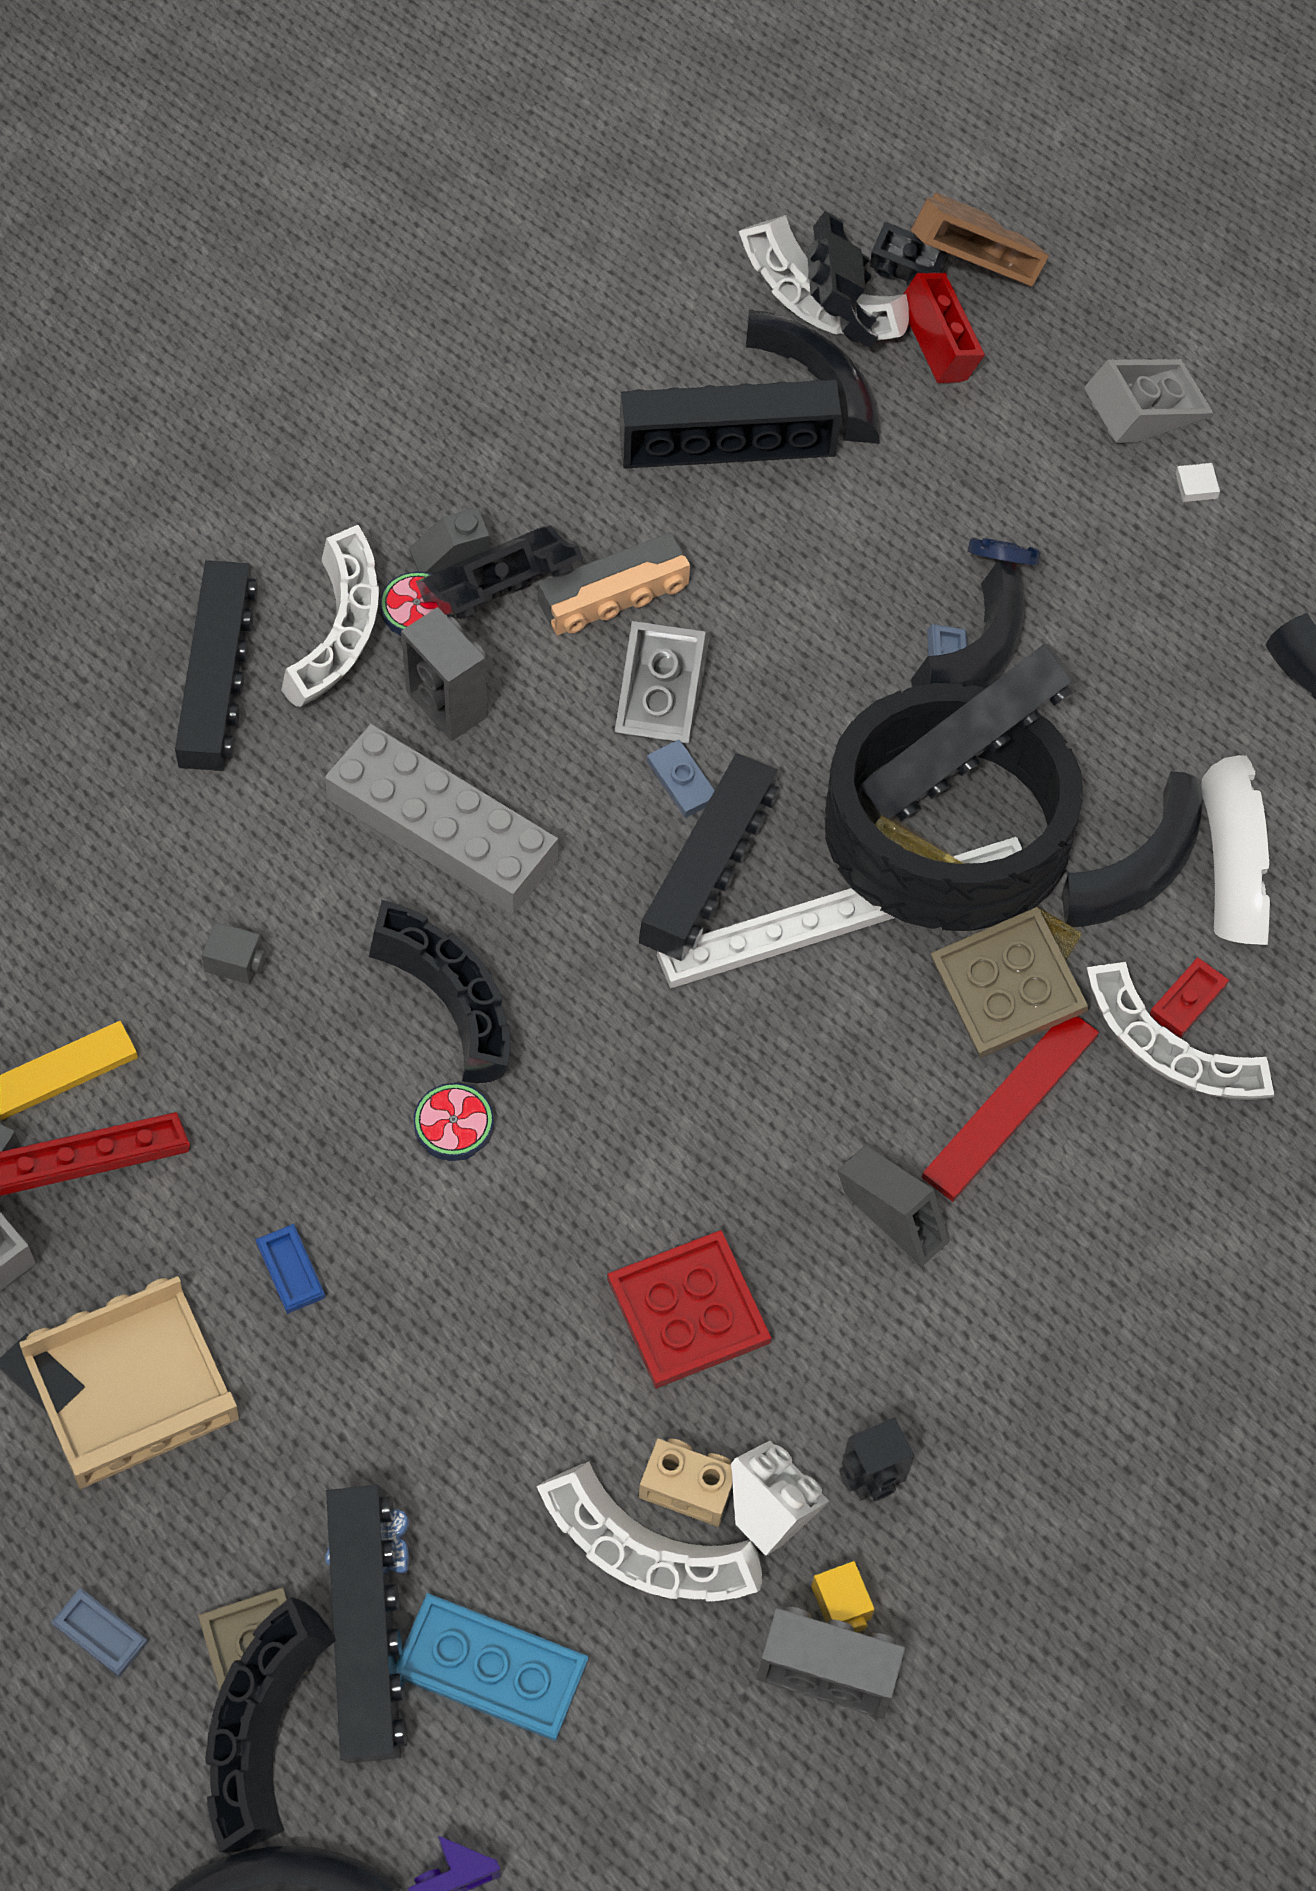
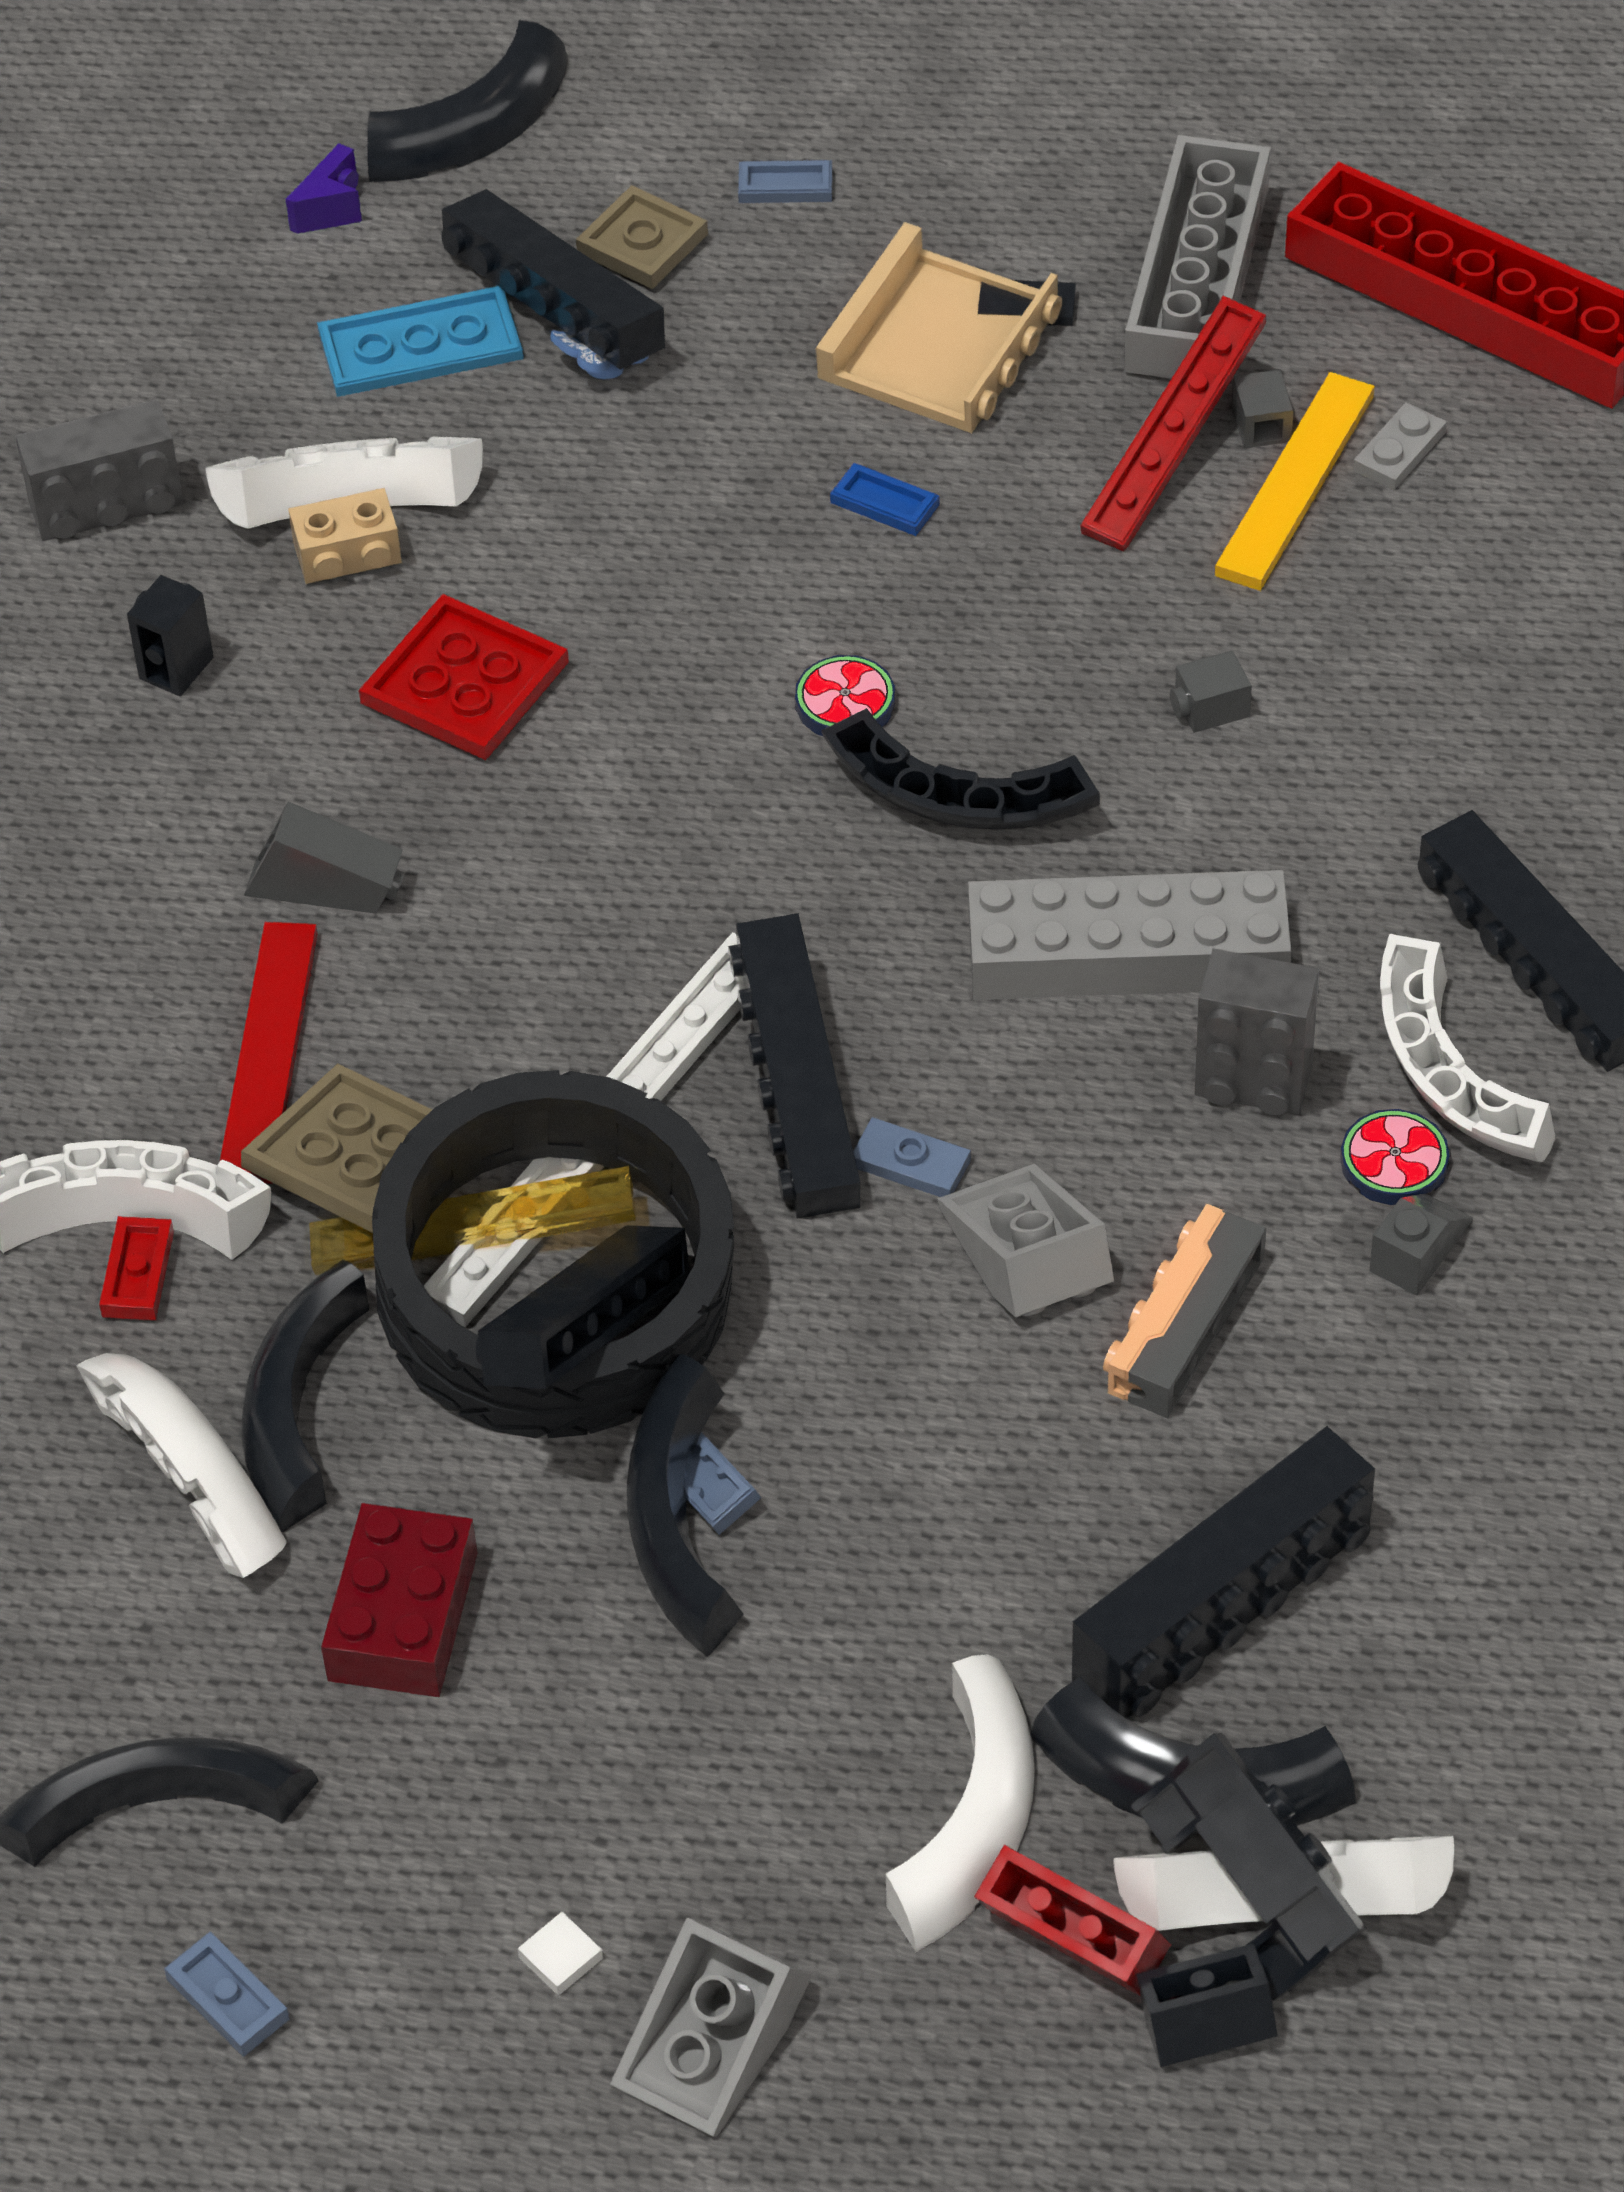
camera: 150 degrees right, 10 degrees down
(248, 1720) = (576, 165): black brick -> none
(504, 566) = (1333, 1215): black bracket -> none
(772, 1496) = (254, 573): white slope -> none
(843, 1596) = (129, 541): yellow brick -> none
(934, 411) = (939, 1882): none -> white brick
(978, 239) = (1133, 2059): medium nougat brick -> none
(1004, 551) = (736, 1640): dark blue tile -> none
(1165, 692) = (399, 1600): none -> dark red brick

